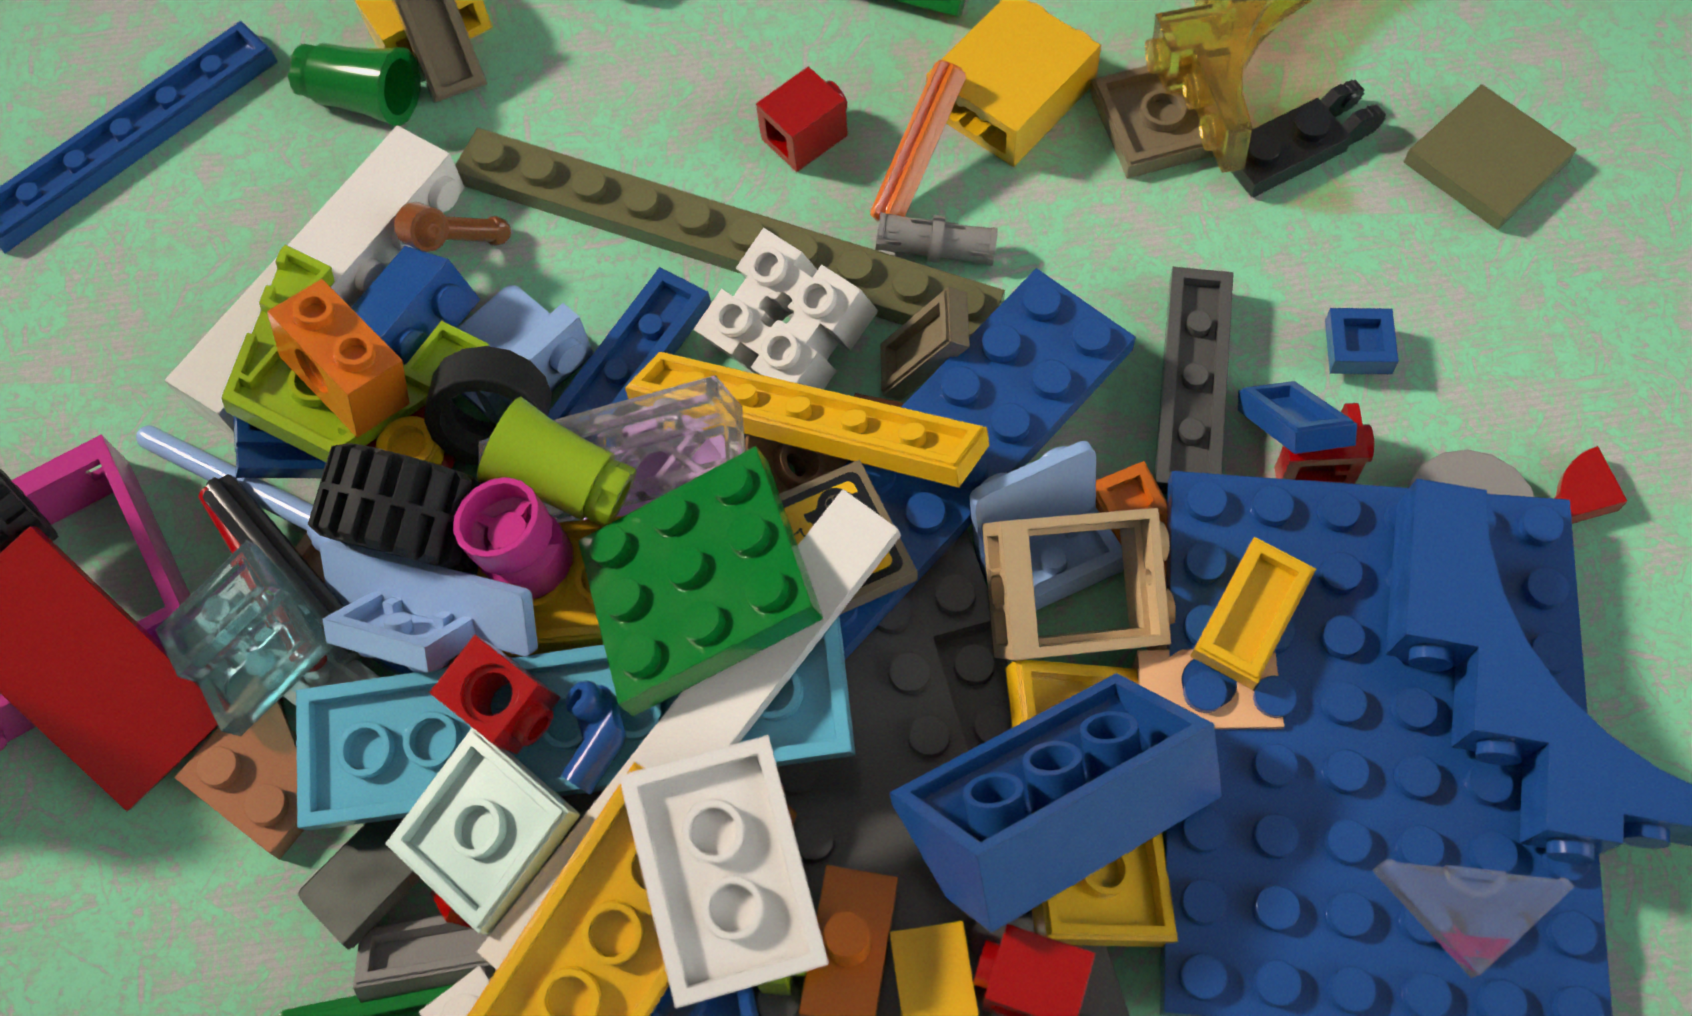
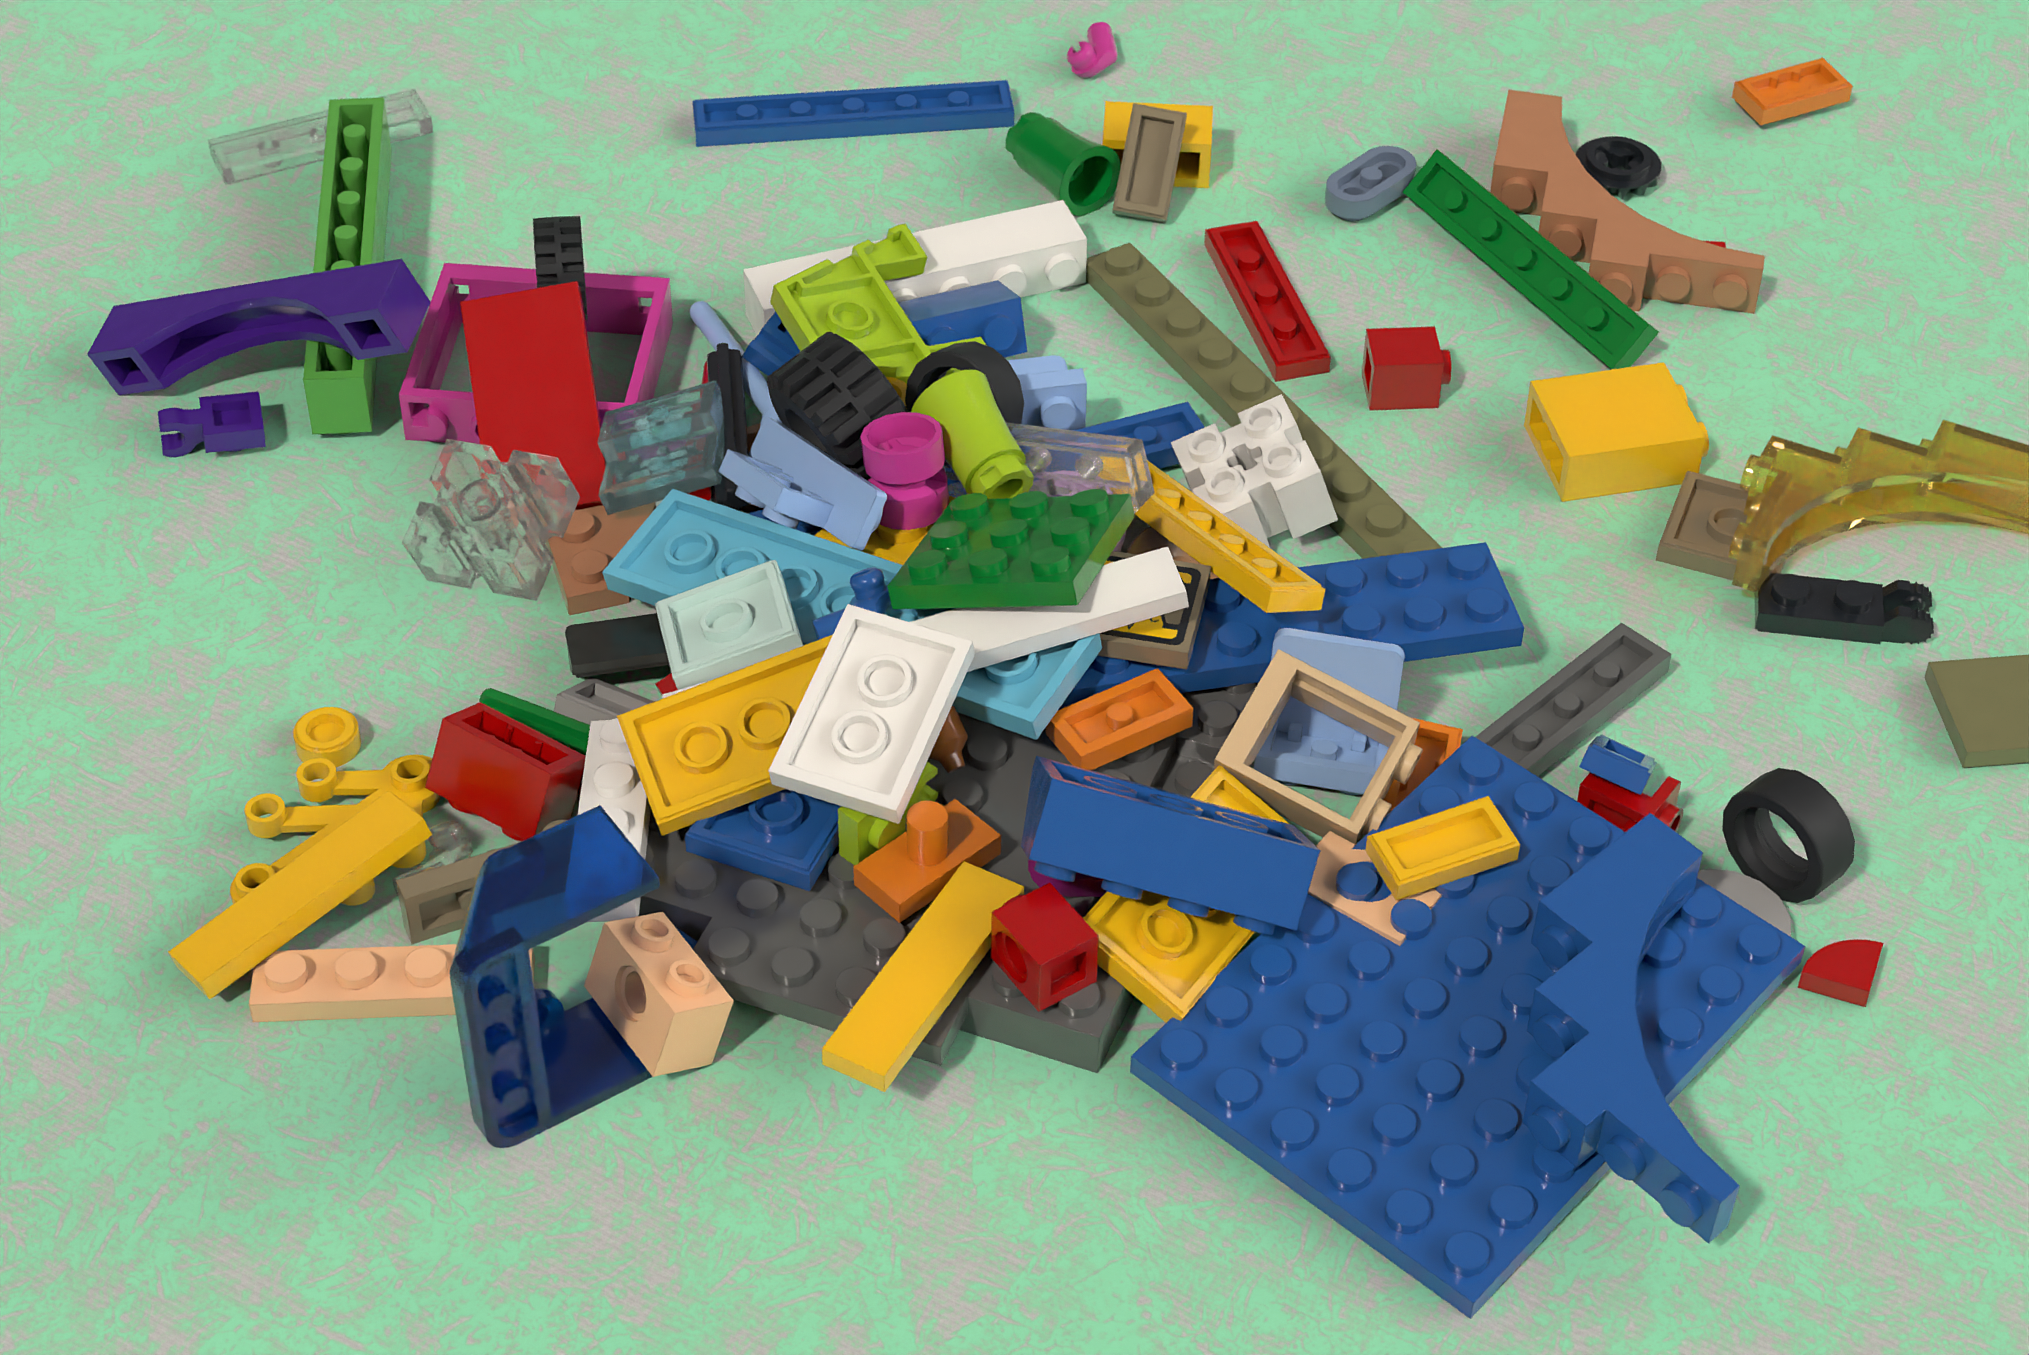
camera: 30 degrees right, 20 degrees down
(136, 834) = (491, 519): none -> clear brick
(339, 357) = (880, 299): orange brick -> none
(430, 228) = (1024, 274): dark orange piece -> none
(471, 684) = (808, 546): red brick -> none
(633, 115) = (1267, 301): none -> red tile
(897, 670) = (1120, 720): none -> orange plate
(919, 140) = (1479, 427): orange axle -> none
(924, 343) = (1364, 539): dark tan tile -> none
(936, 239) = (1436, 503): light grey pin -> none
(1361, 341) = (1739, 758): blue plate -> none
(1472, 909) = (1440, 1131): clear tile -> none
(1487, 373) = (1813, 817): none -> black tyre

